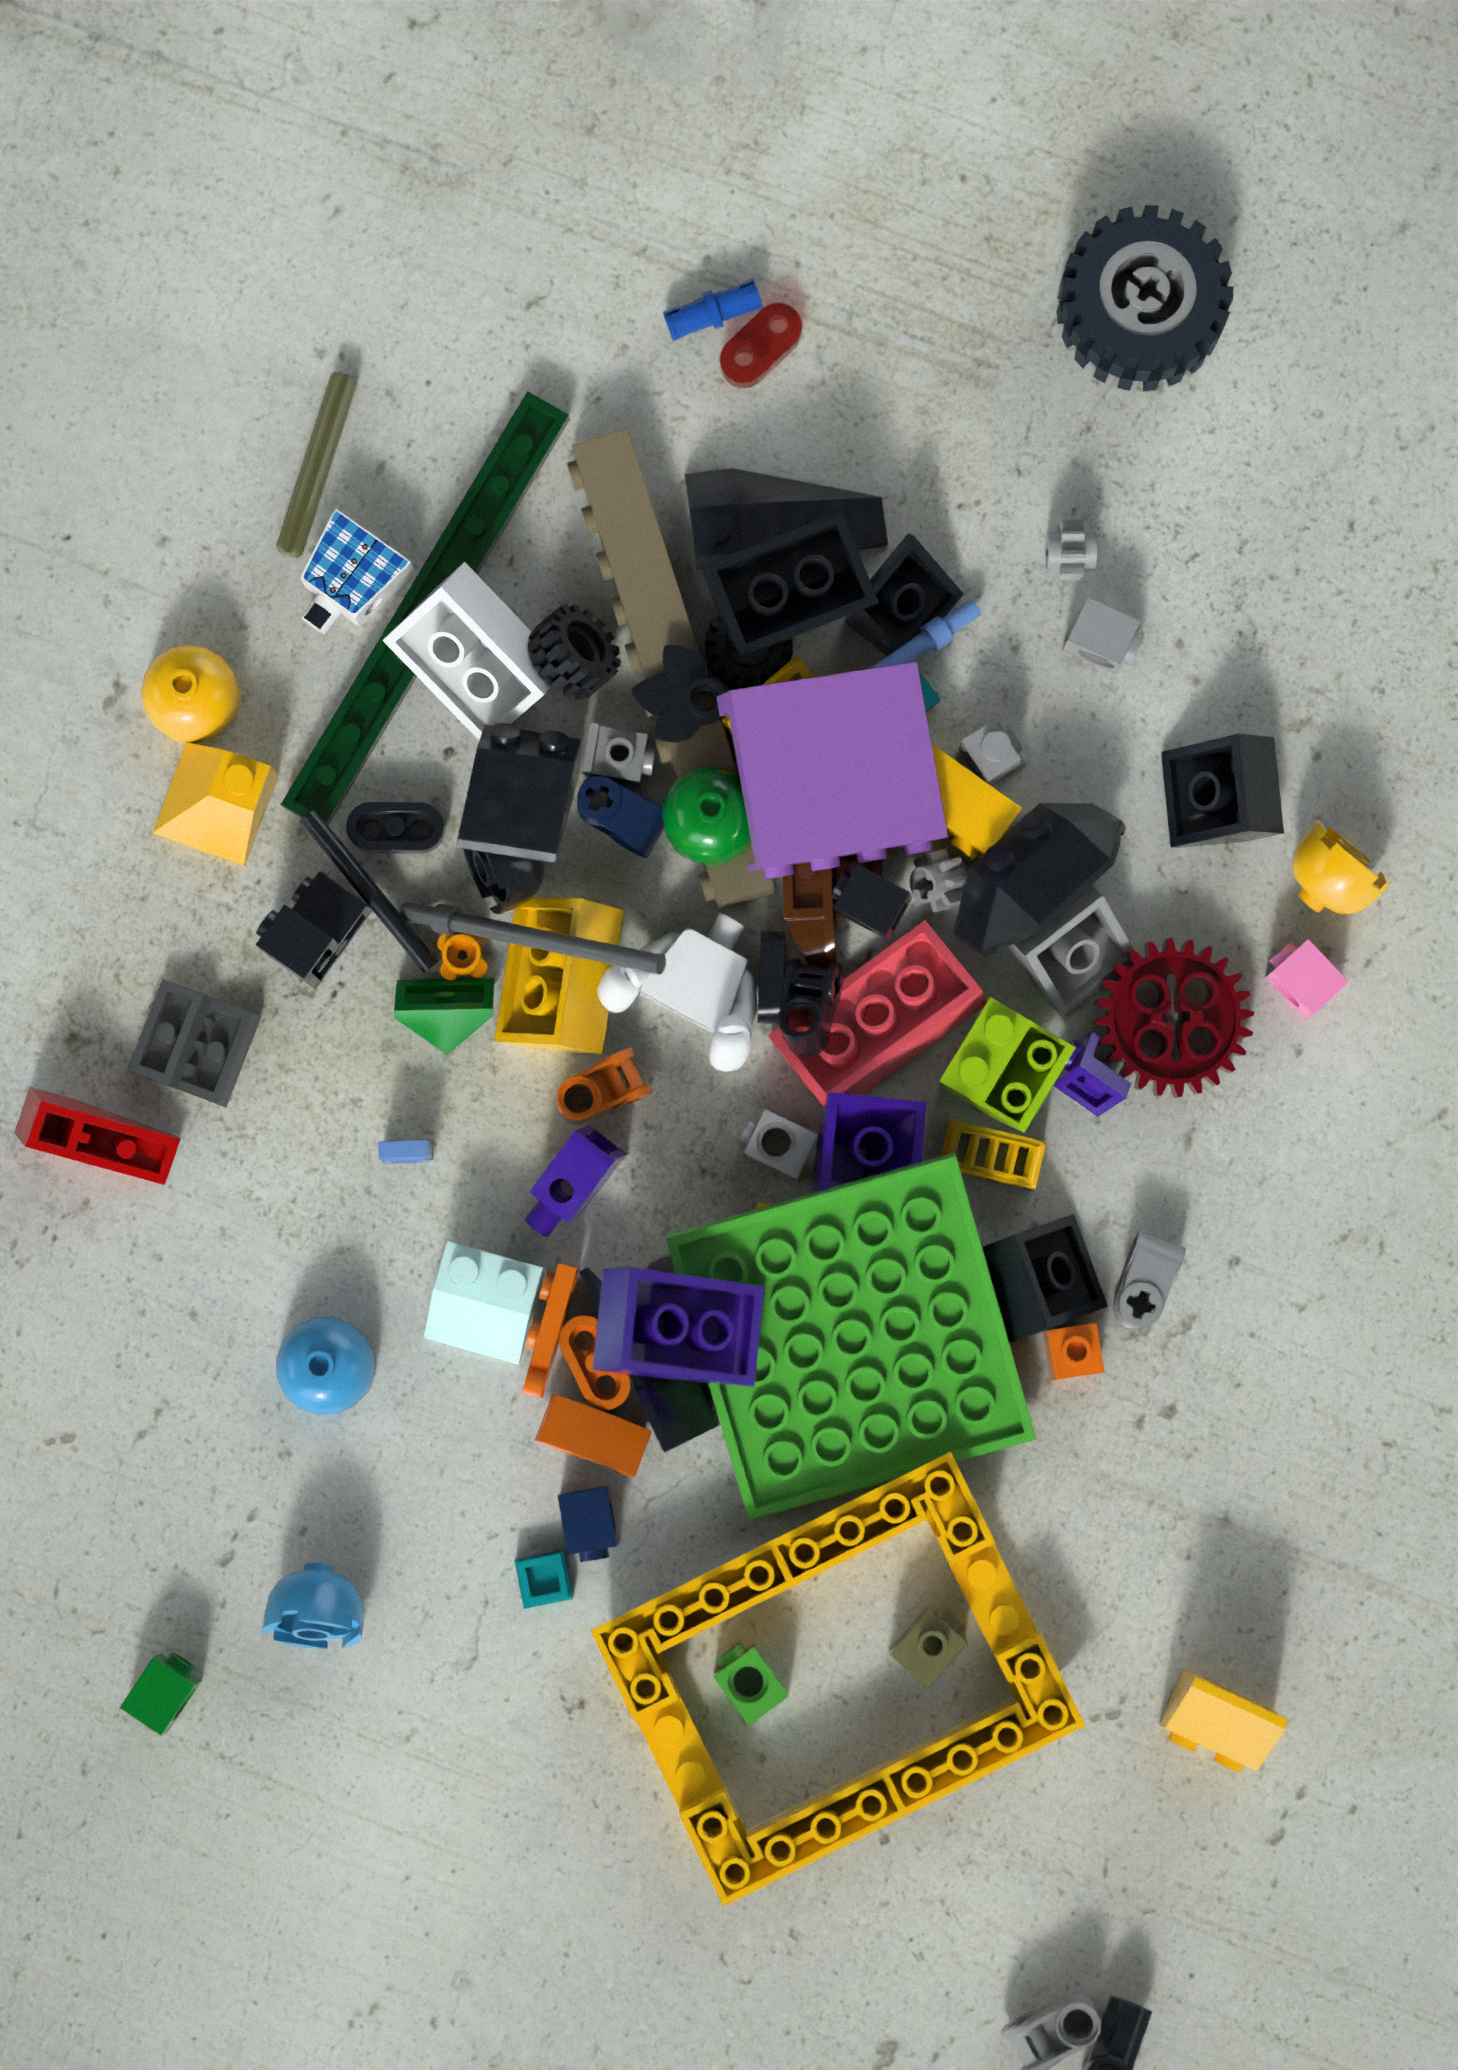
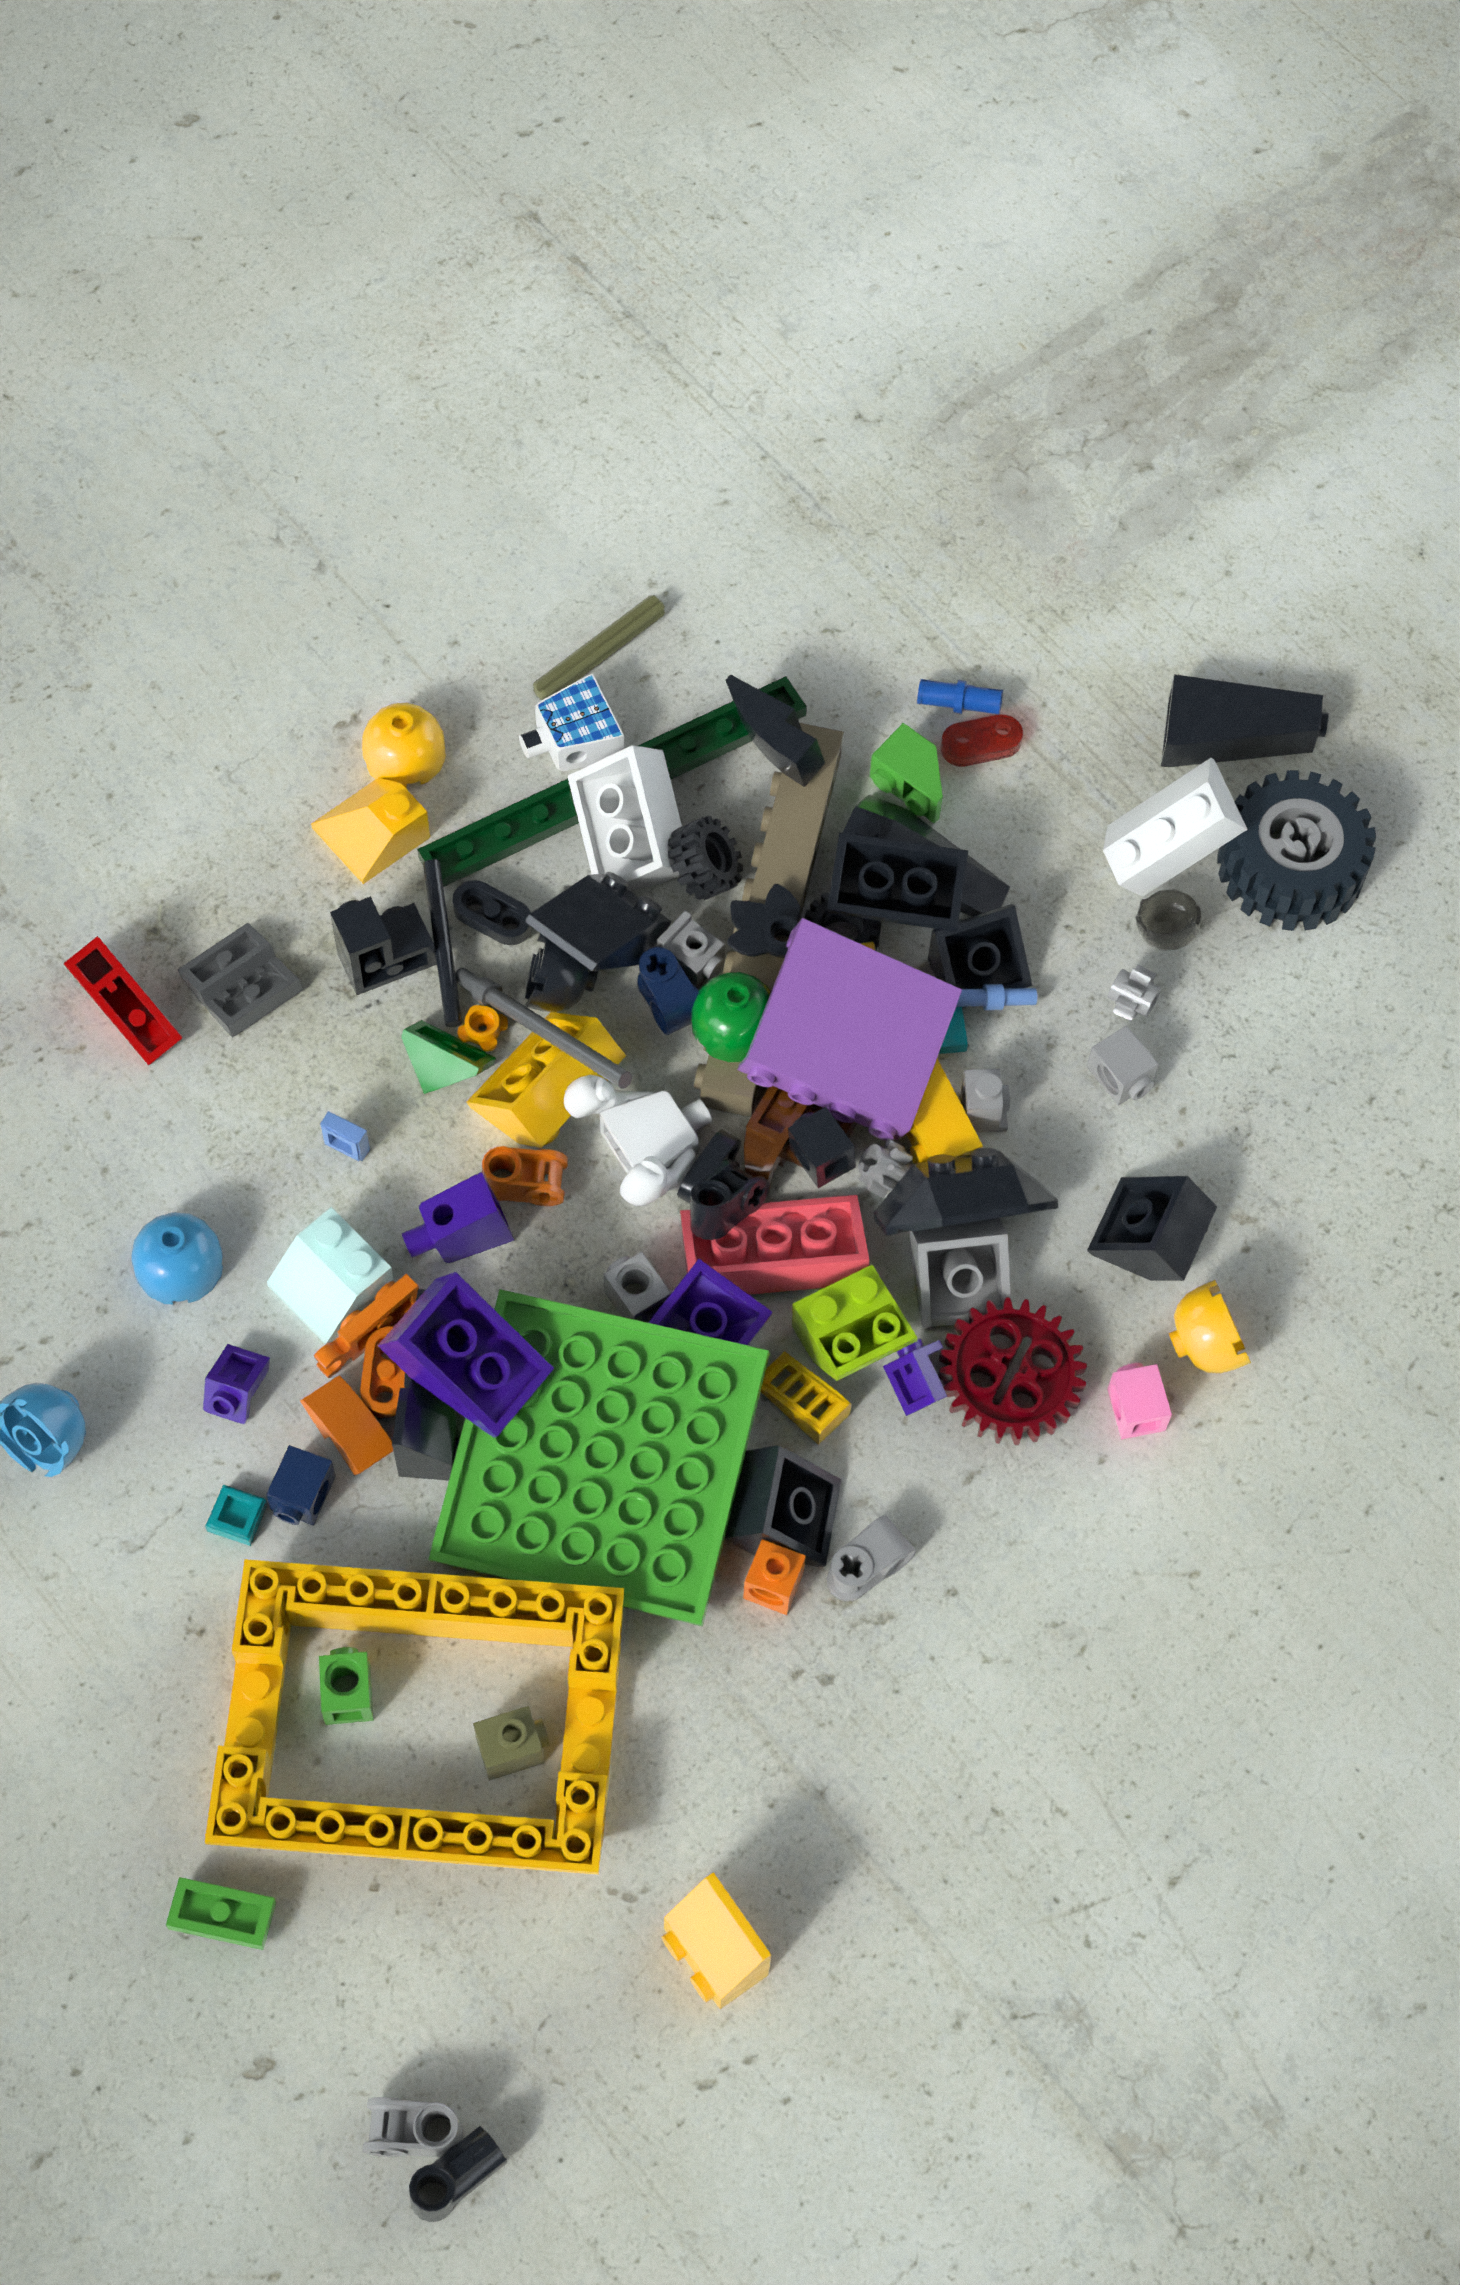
camera: 25 degrees right, 20 degrees down
(461, 1456) = (233, 1383): none -> dark purple bracket
(564, 474) = (776, 732): none -> black slope
(715, 426) = (910, 771): none -> bright green slope
(769, 1948) = (221, 1913): none -> bright green plate
(1001, 180) = (1238, 722): none -> black slope
(1013, 350) = (1172, 830): none -> white slope
(1060, 448) = (1168, 919): none -> clear smoke hair

